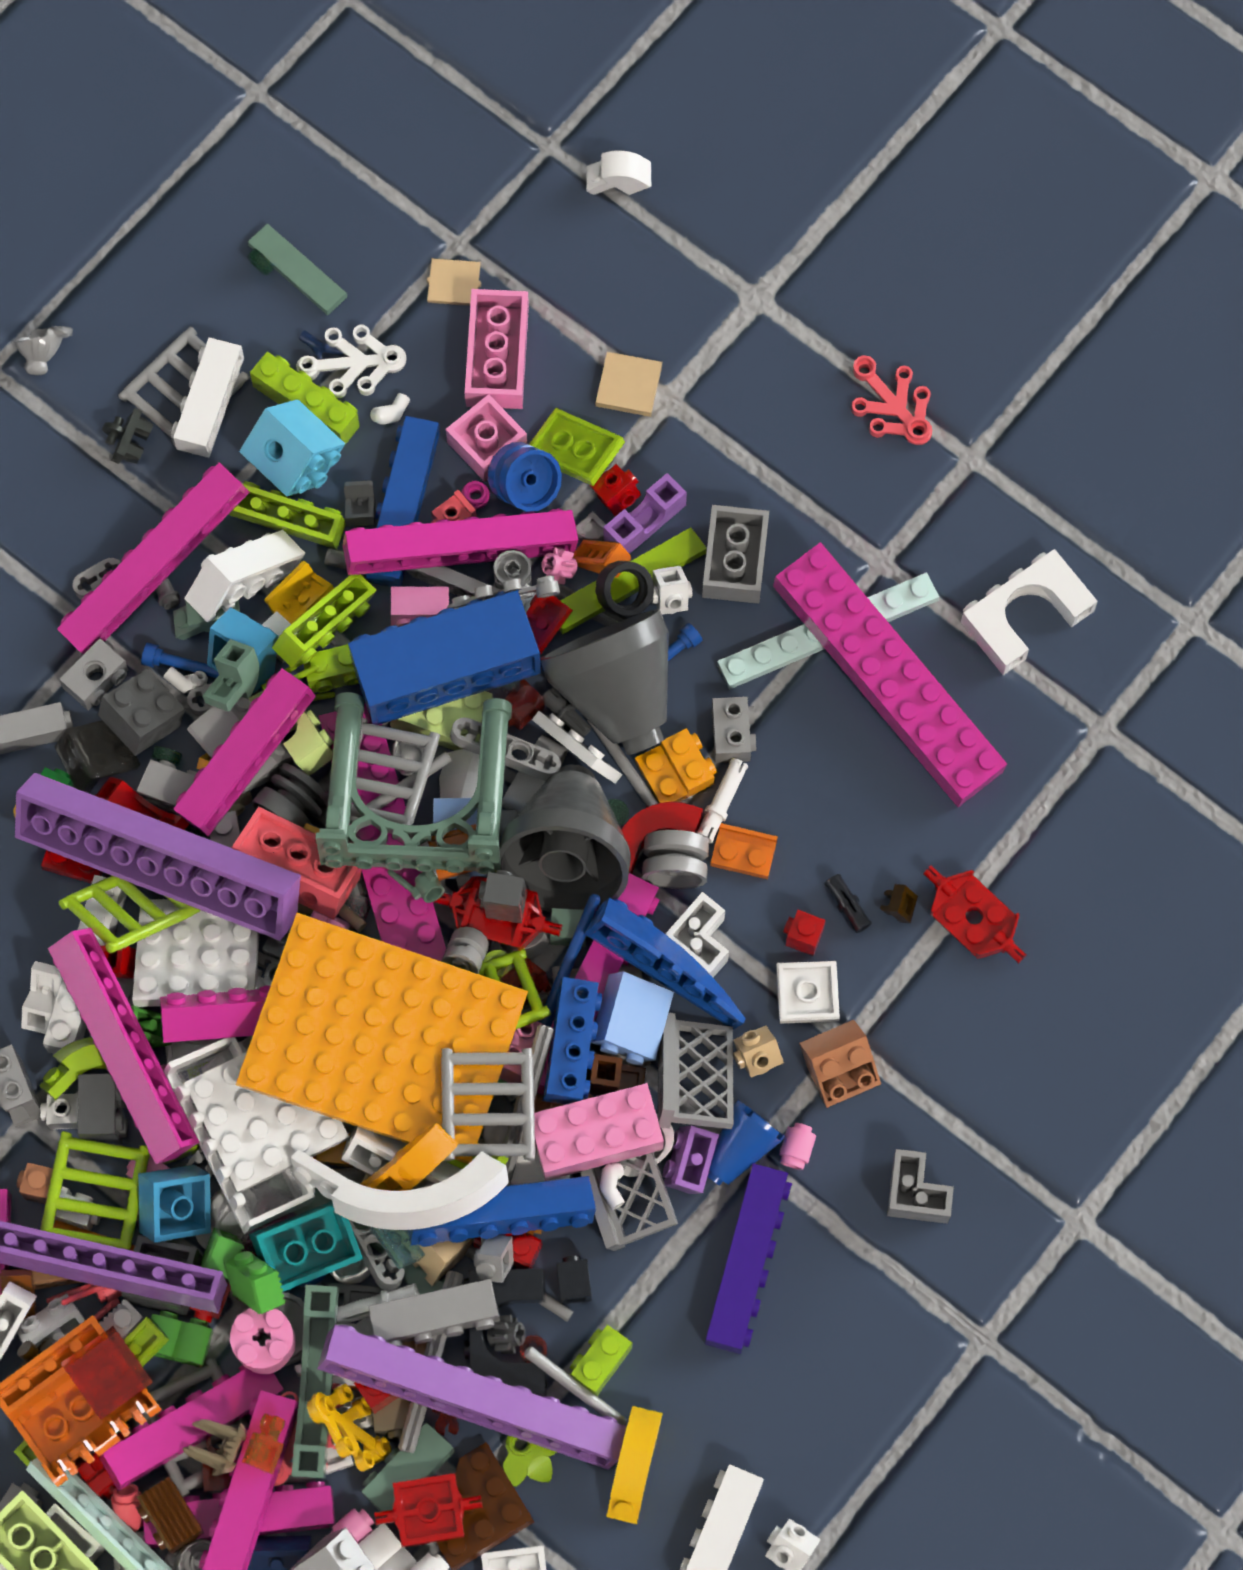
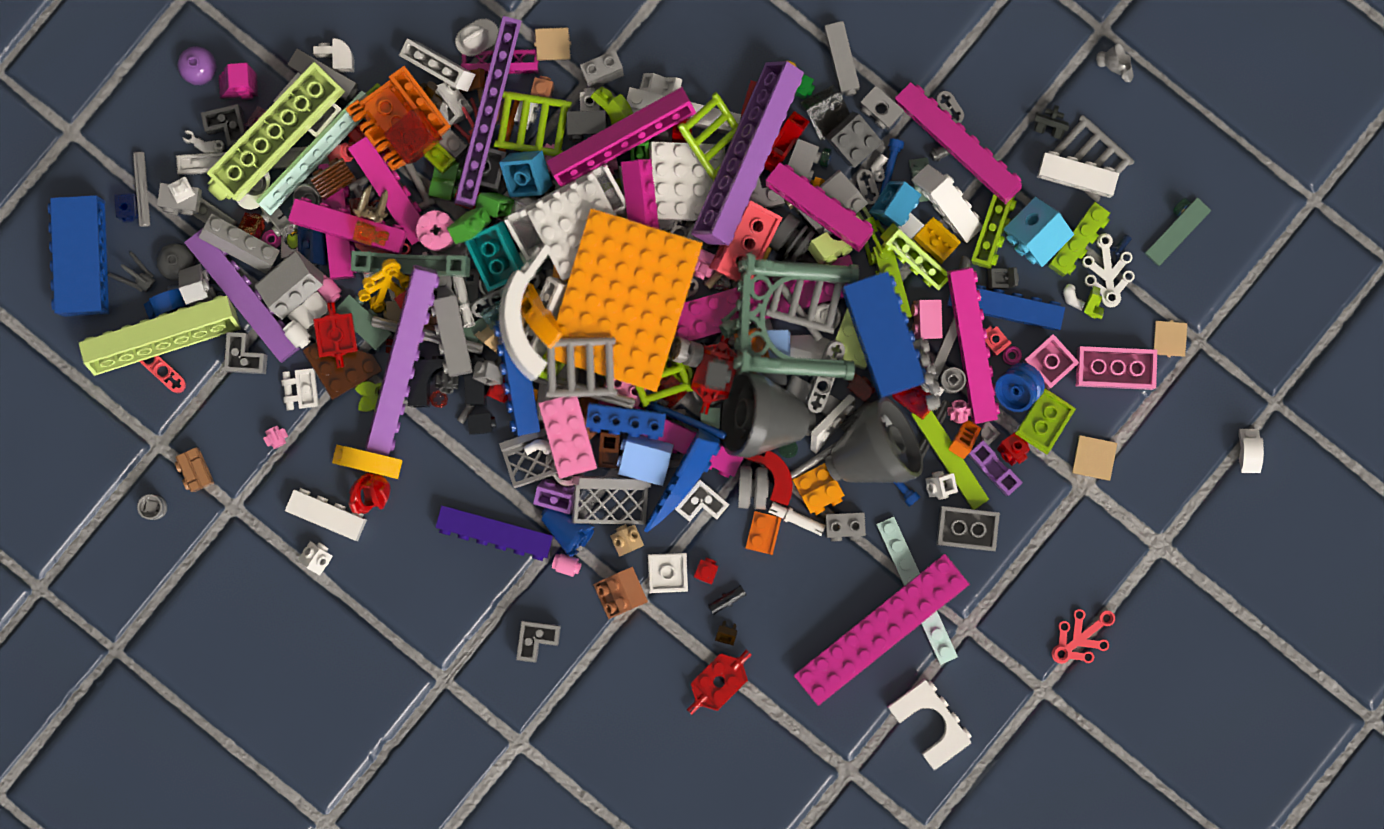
camera: 95 degrees right, 15 degrees up
(237, 675) = (871, 200): sand green brick -> none
(398, 380) = (1092, 304): none -> lime bracket
(572, 1385) = (412, 424): light grey bar -> none
(601, 1360) = (430, 441): lime brick -> none
(644, 596) = (933, 466): black tyre -> none
(684, 1455) = (376, 493): none -> red helmet

